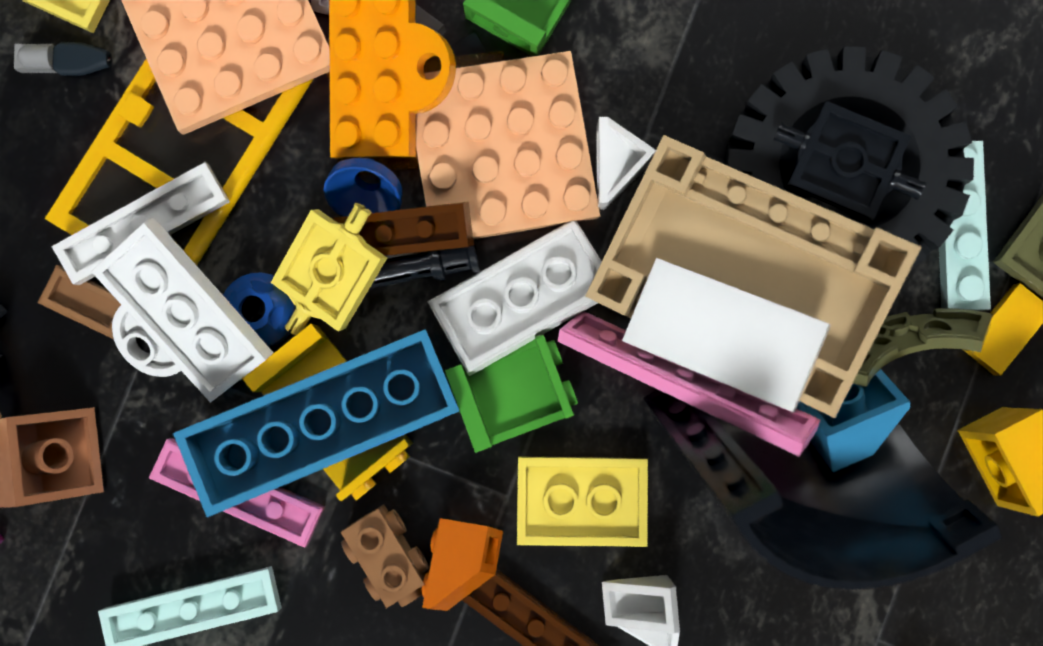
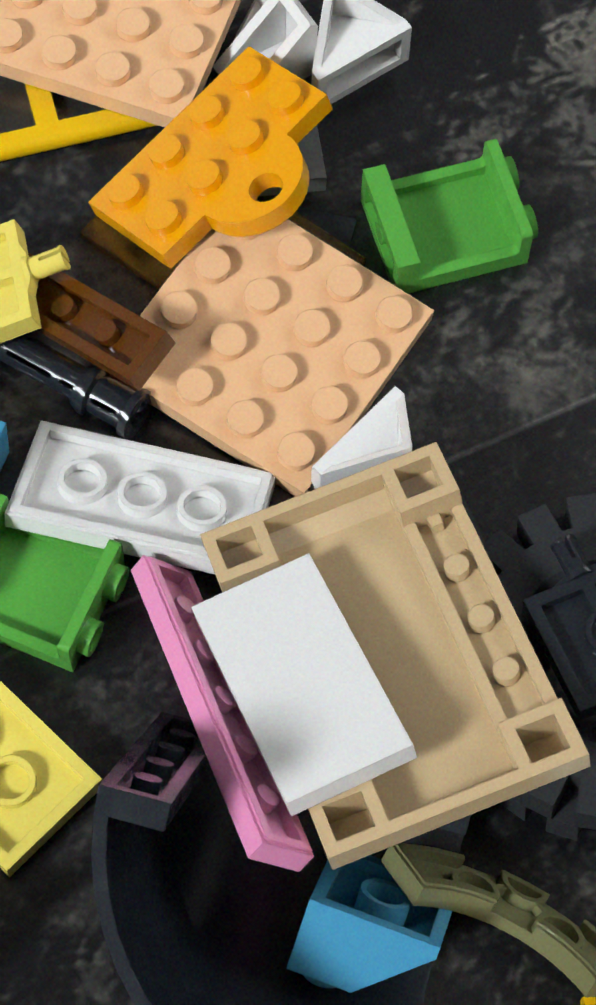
camera: 40 degrees right, 20 degrees down
(345, 187) = (80, 231): blue piece -> none

